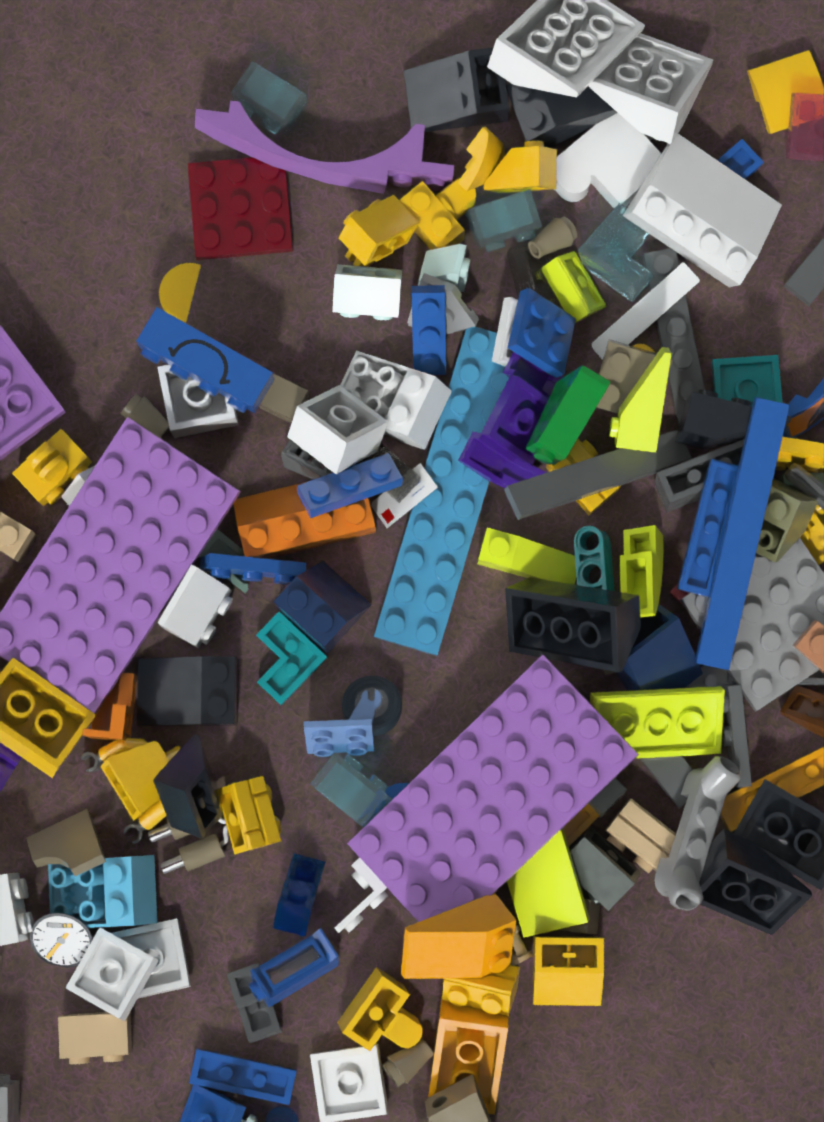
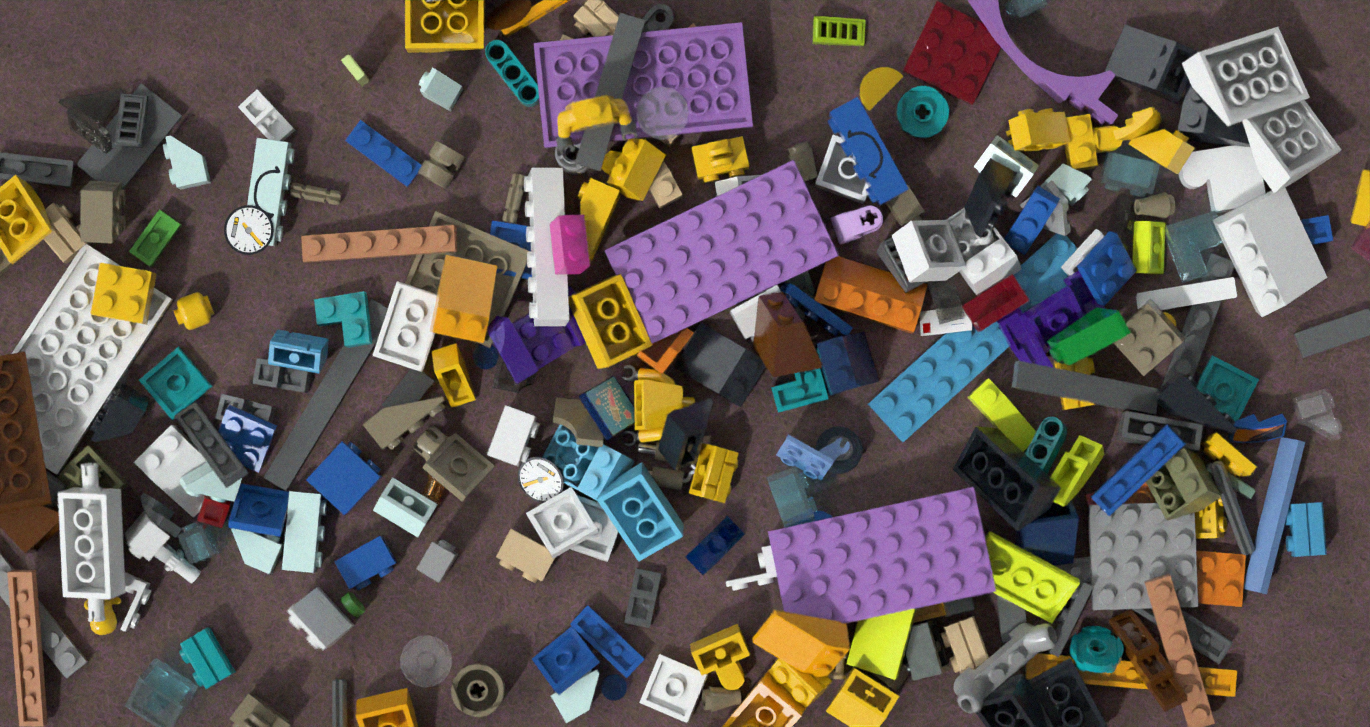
camera: 30 degrees right, 5 degrees up
(89, 813) = (609, 407): none -> tile
(96, 273) = (819, 20): none -> lime slope
(193, 908) = (641, 512): none -> medium azure slope
(233, 617) = (782, 337): none -> reddish brown slope
(236, 455) = (850, 227): none -> lavender piece
(248, 271) = (933, 102): none -> teal plate
(293, 969) = (683, 592): blue window -> none
(349, 485) = (913, 294): blue plate -> none
(367, 330) = (989, 196): none -> black slope
(445, 441) = (995, 303): none -> dark red panel
(642, 410) = (1141, 363): neon yellow slope -> none
(741, 533) = (1155, 487): blue tile -> none
(791, 767) = (1098, 662): none -> teal plate

